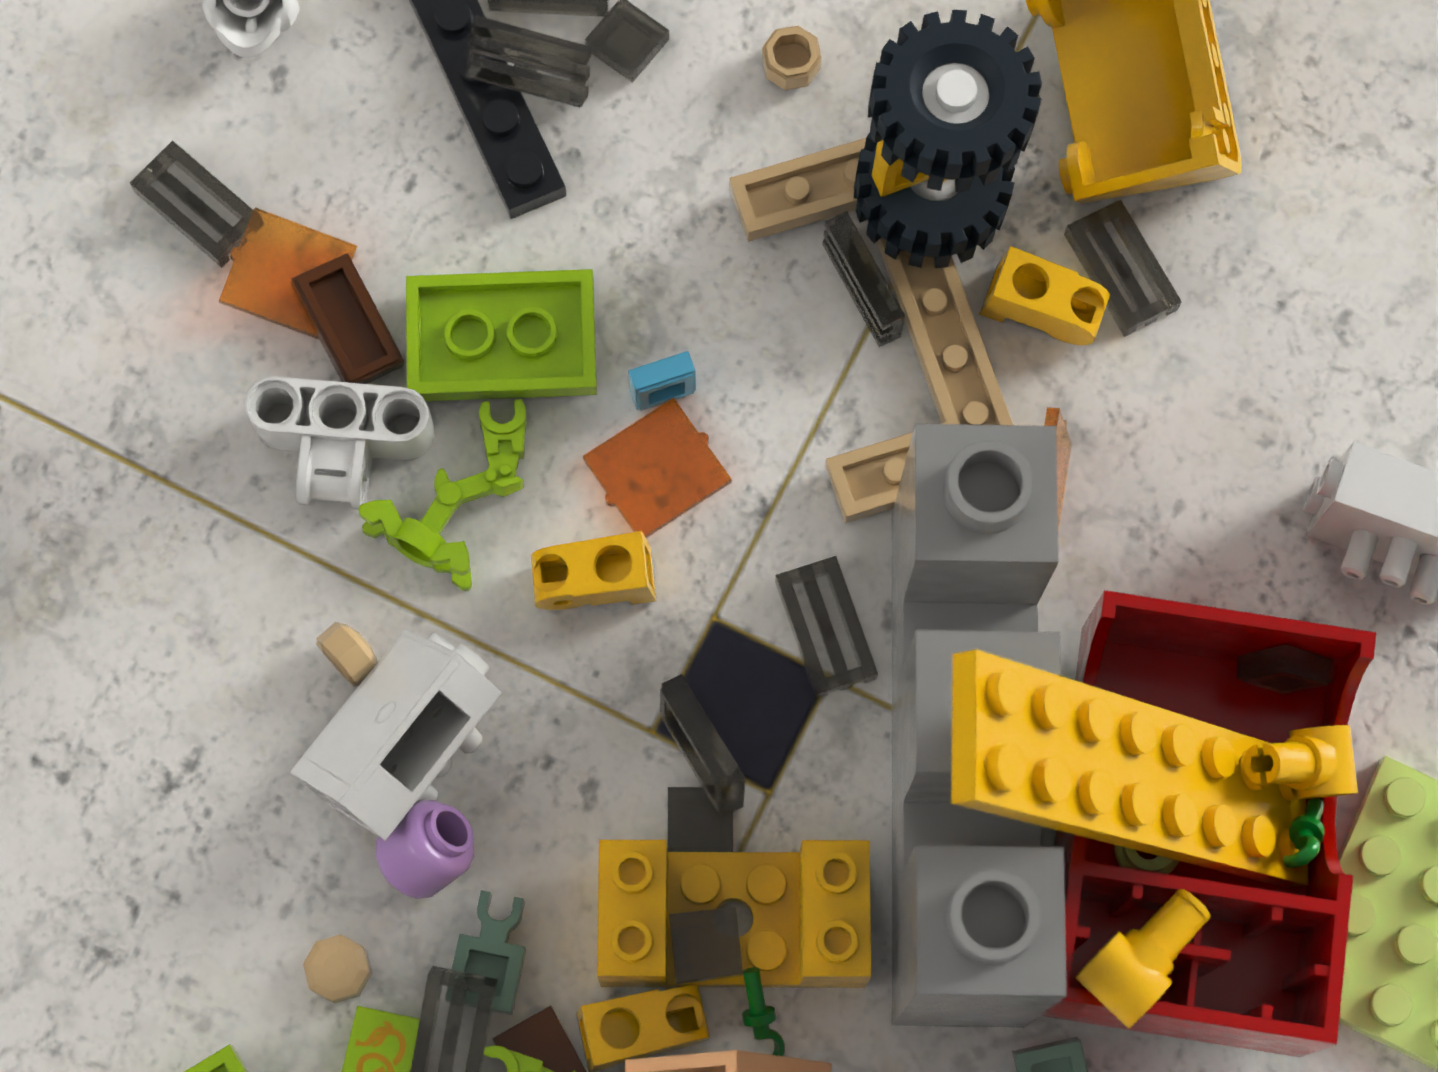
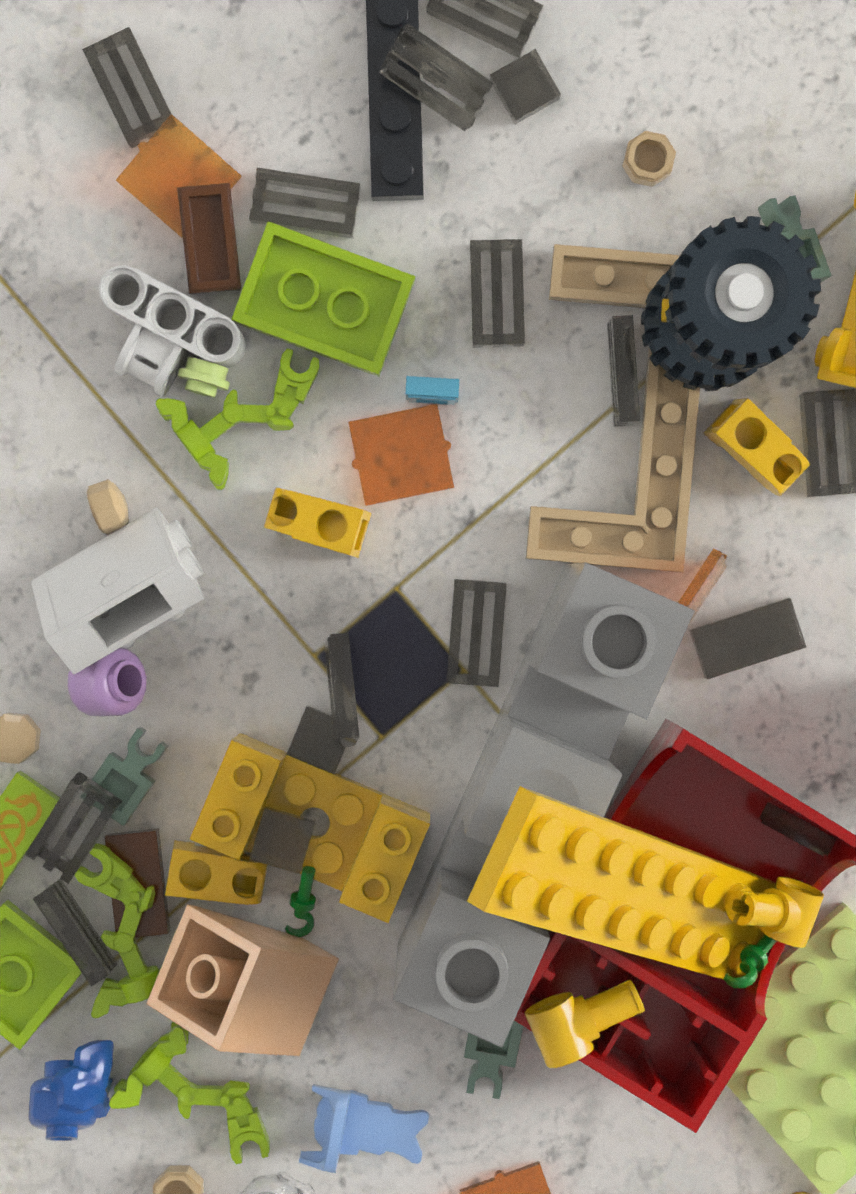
camera: 20 degrees right, 15 degrees up
(401, 468) = (204, 377): none -> yellowish green plate
(434, 225) = (305, 182): none -> clear smoke tile
(709, 302) = (495, 248): none -> clear smoke tile
(1131, 509) = (747, 638): none -> clear smoke tile

